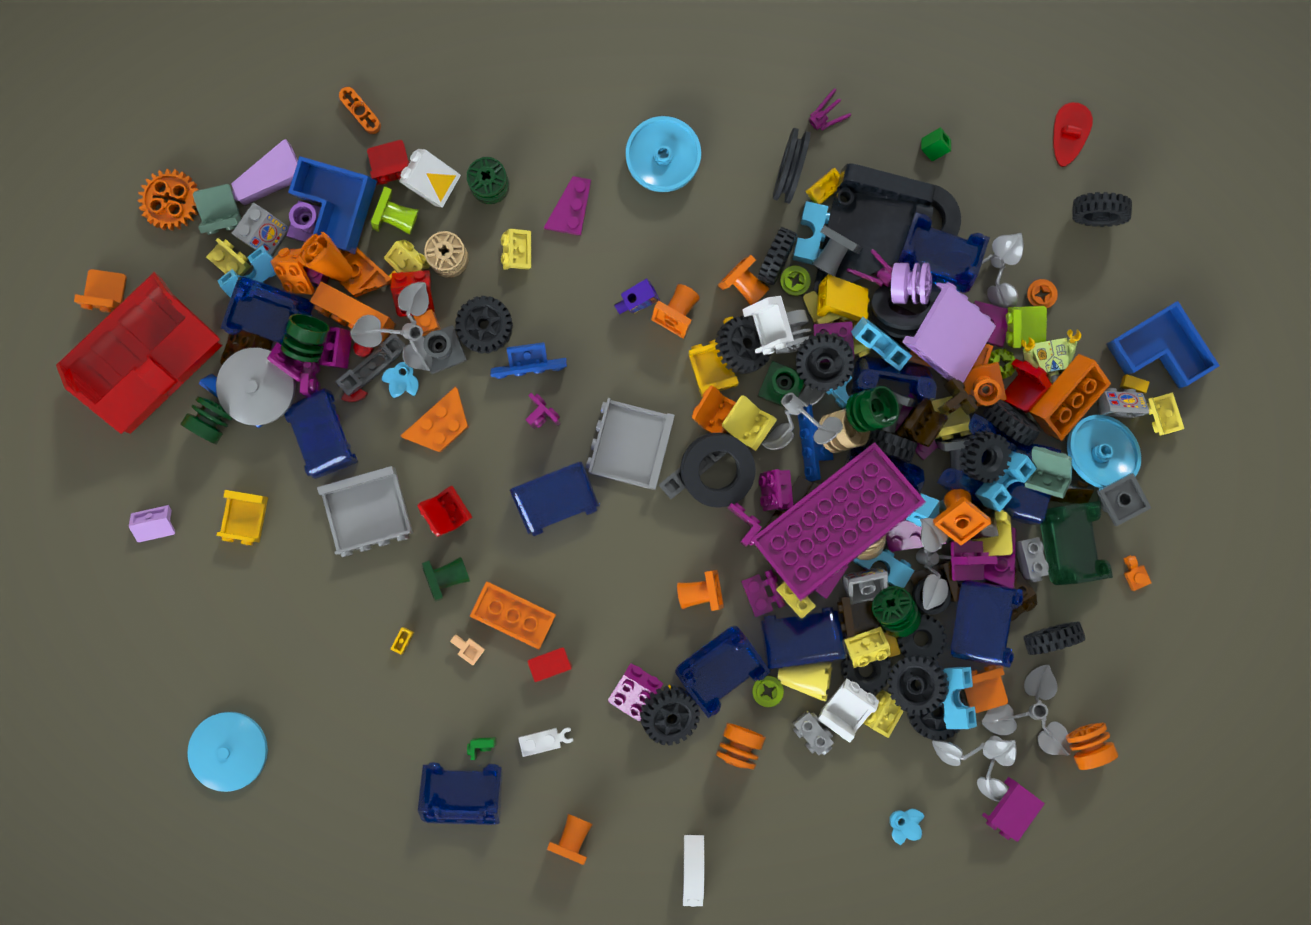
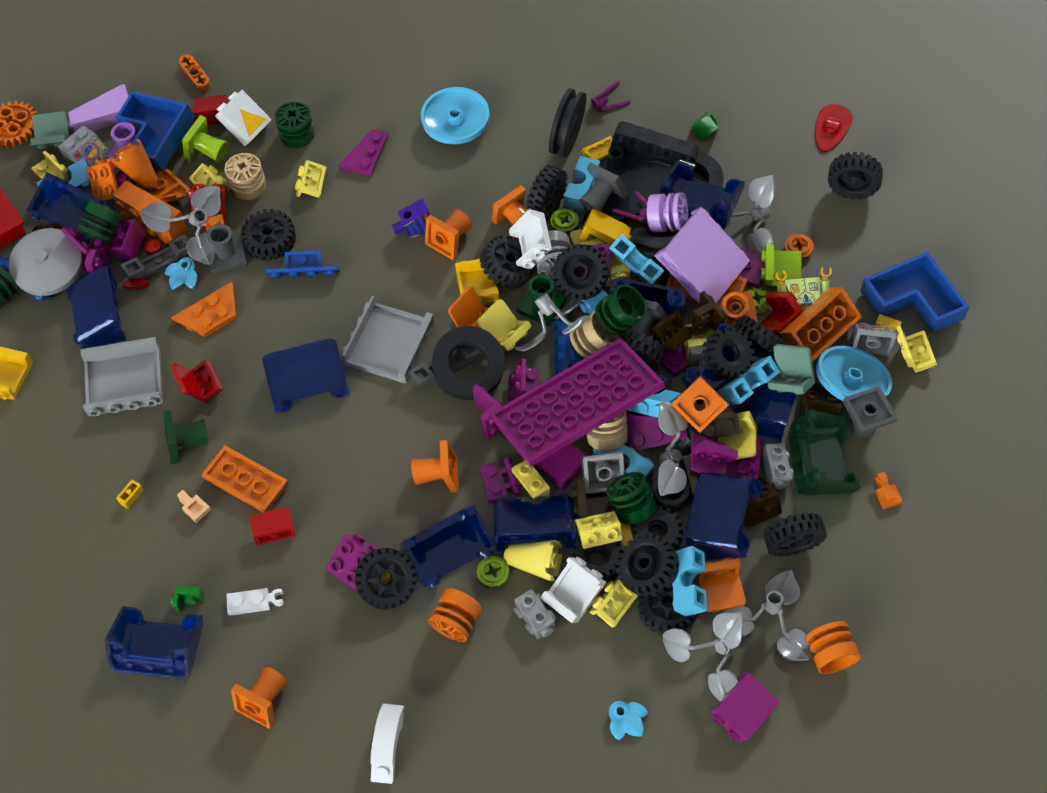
camera: 10 degrees right, 25 degrees down
(538, 416) = (306, 304): magenta bracket -> none

